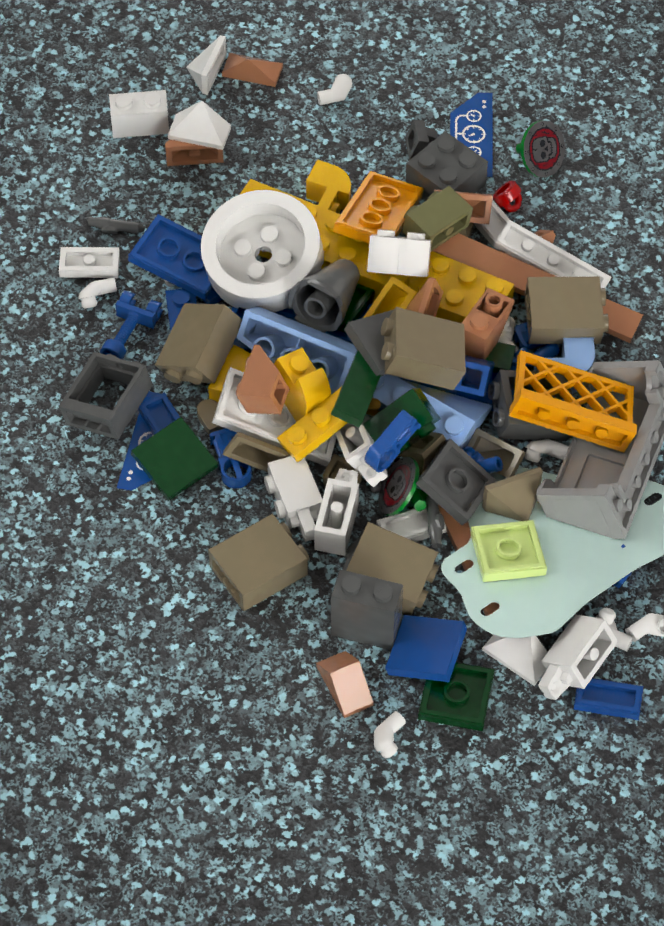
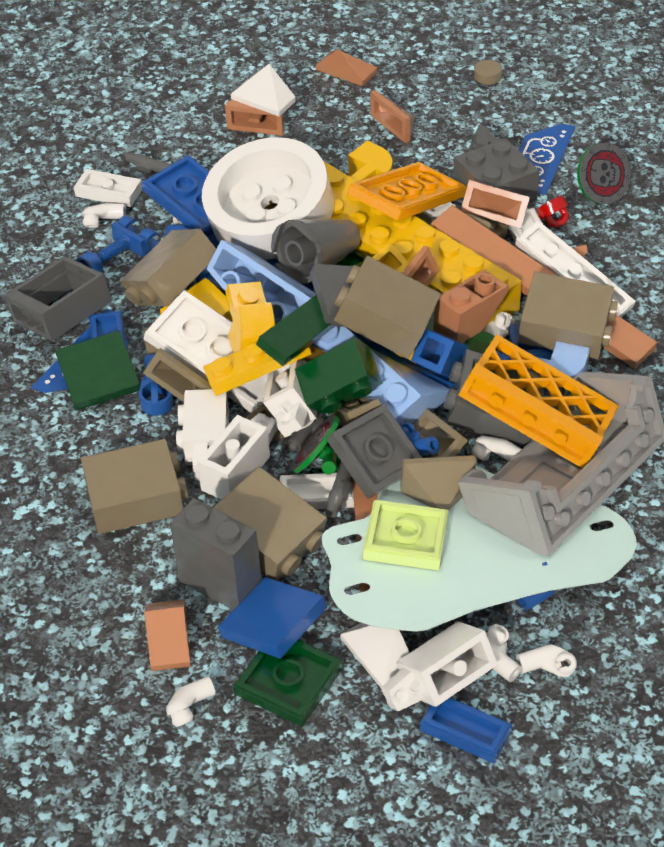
camera: 20 degrees right, 10 degrees down
(139, 114) = (215, 77): white brick -> none
(207, 64) = (307, 55): white slope -> none
(262, 385) = (203, 309): nougat slope -> none
(323, 120) = (392, 116): none -> nougat slope
(337, 92) = (419, 97): white arm -> none
(388, 445) = (315, 384): blue piece -> none
(390, 47) = (487, 72): none -> dark tan tile
(399, 254) = (403, 222): white brick -> none
(439, 217) = (459, 203): olive brick -> none

